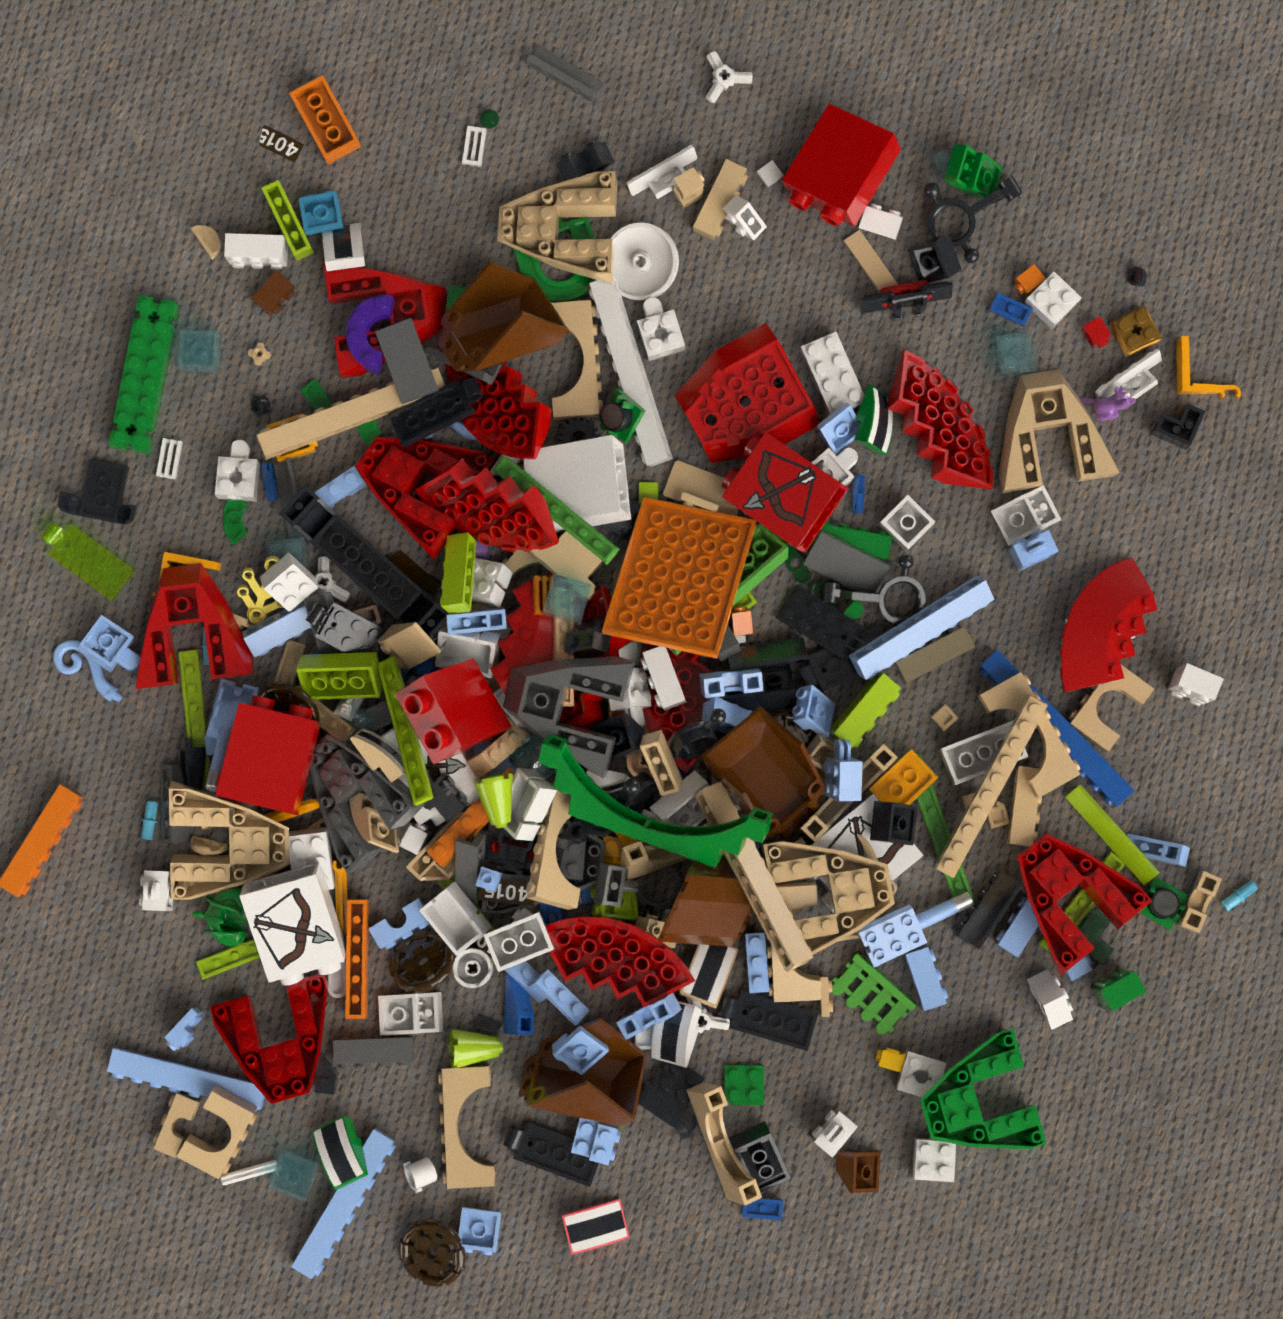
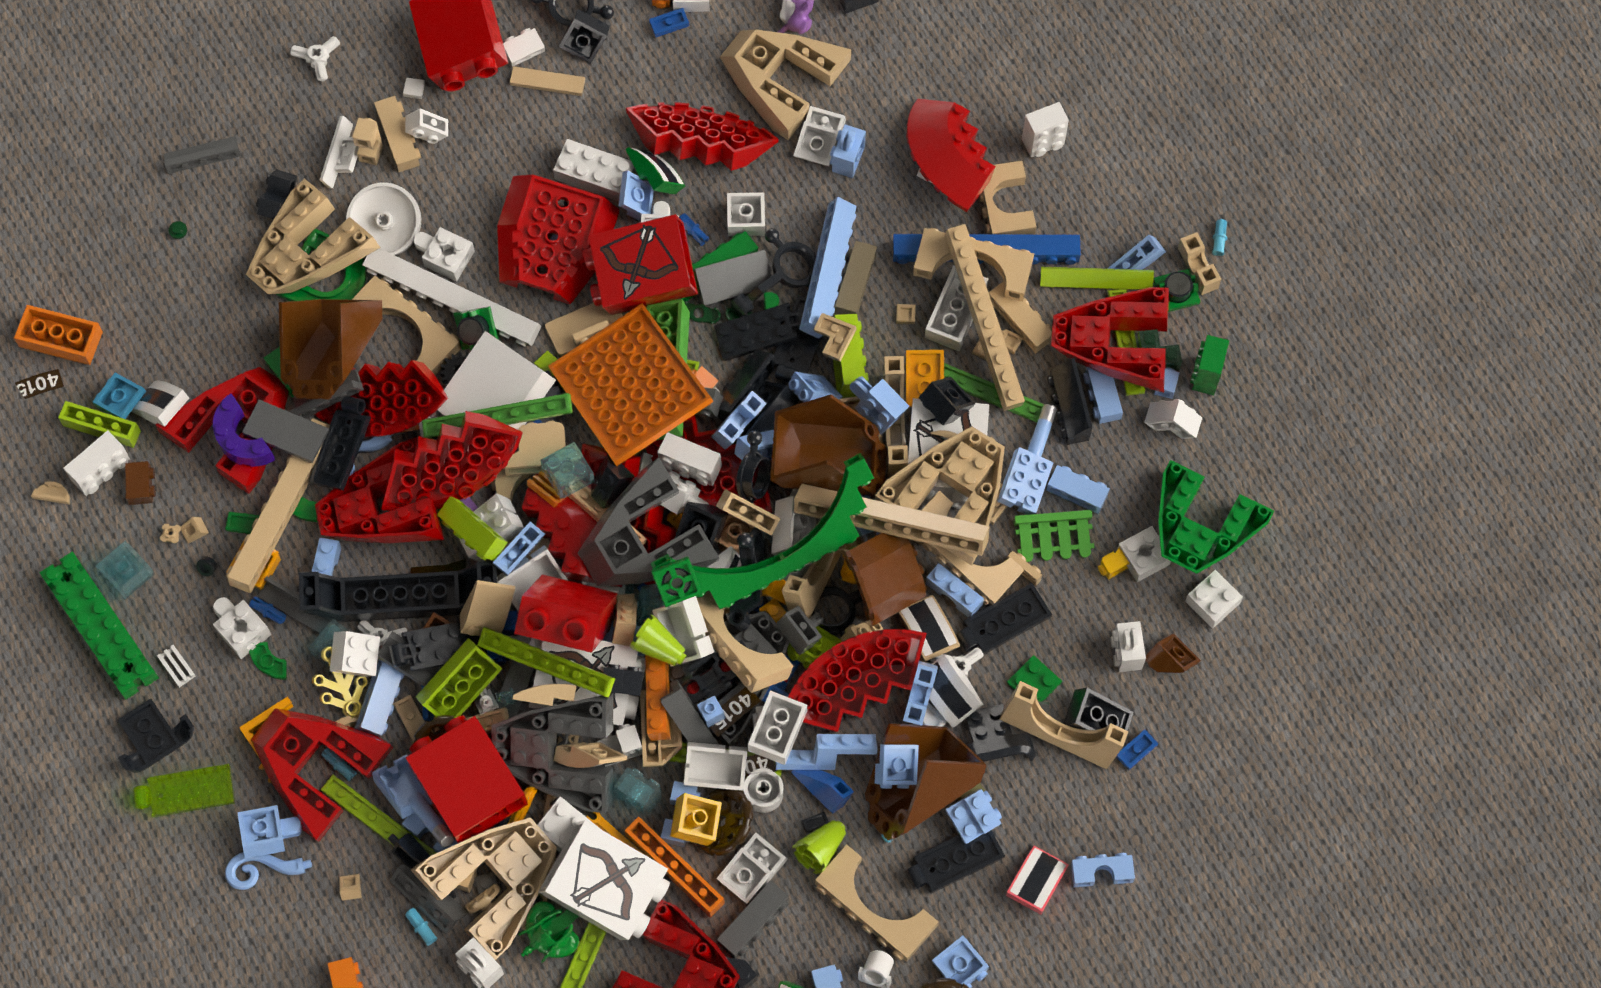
camera: 50 degrees left, 15 degrees down
(131, 742) = (350, 887): none -> tan slope
(279, 367) = (194, 529): none -> tan slope
(337, 982) = (677, 897): white tile -> none
(386, 880) = (638, 791): none -> clear light blue brick
(401, 944) = (695, 819): none -> yellow brick
(472, 162) = (194, 269): white tile -> none
(547, 769) = (676, 580): none -> green piece
(634, 1254) = (1118, 866): none -> light blue arch
(869, 693) = (839, 335): none -> tan plate
(905, 295) = (590, 75): black piece -> none
(1014, 354) = (701, 48): clear light blue slope -> none

